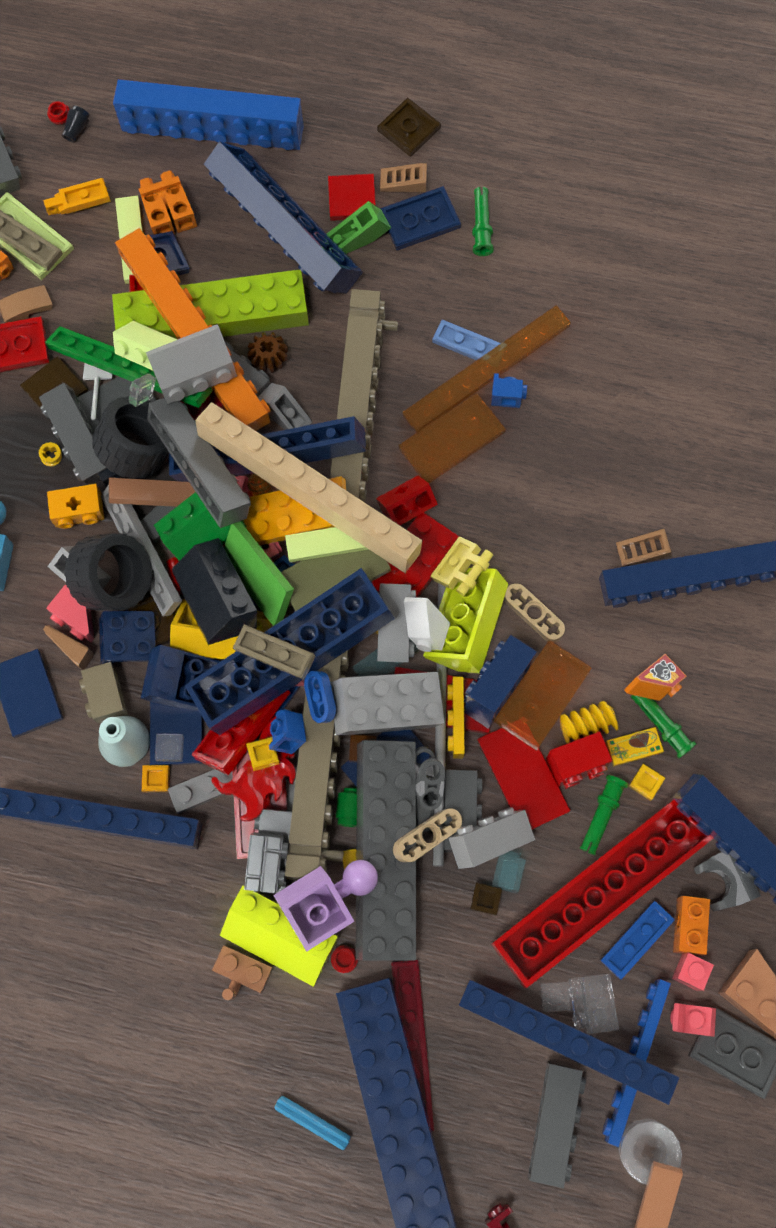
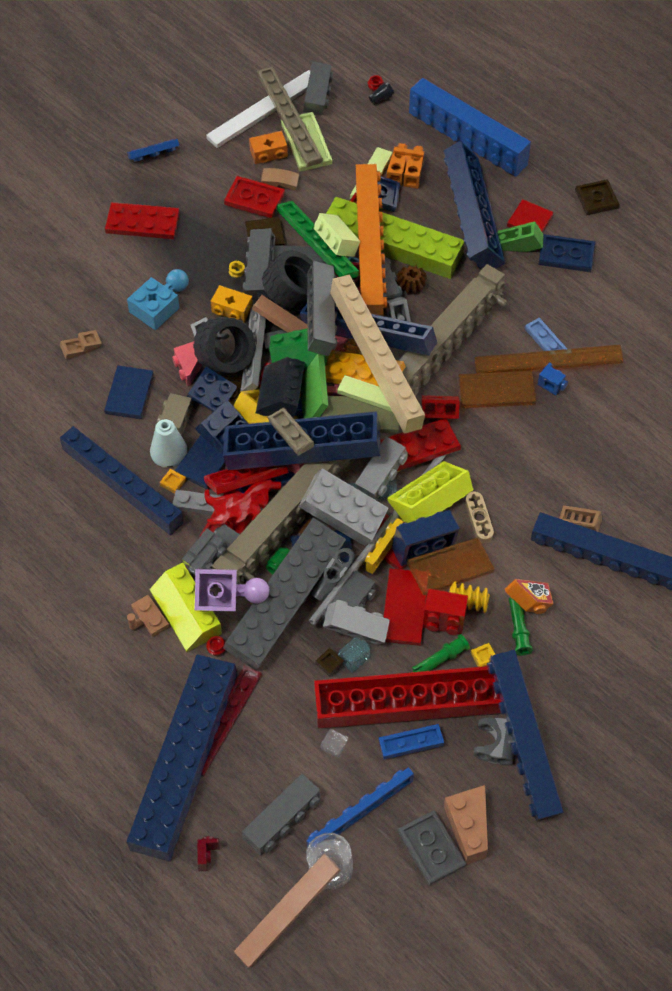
camera: 30 degrees right, 15 degrees down
(74, 650) = (175, 383): medium nougat slope -> none
(78, 197) = (354, 135): light orange hinge -> none
(95, 374) = (295, 238): white piece -> none
(141, 389) = (314, 253): clear plate -> none
(169, 747) = (193, 465): clear plate -> none
(192, 364) = (353, 249): light grey slope -> none
(260, 754) = (246, 493): yellow tile -> none
(287, 732) = (269, 487): blue brick -> none
(312, 1122) = (131, 725): dark azure axle -> none
(320, 696) = (303, 476): blue plate -> none
(412, 185) = (580, 233): medium nougat slope -> none
(415, 835) = (301, 588): tan beam -> none
(425, 624) = (399, 476): white slope -> none
(457, 561) = (448, 459): light yellow plate -> none
(482, 230) = (603, 279): green pin -> none
(570, 1042) = (323, 767): dark blue brick -> none
(593, 1004) = (356, 761): clear bracket -> none
(634, 746) = (490, 630): yellow tile -> none
(691, 925) = (452, 752): orange brick -> none
(692, 972) = (434, 779): coral brick -> none
(693, 1019) = (414, 807): coral bracket -> none

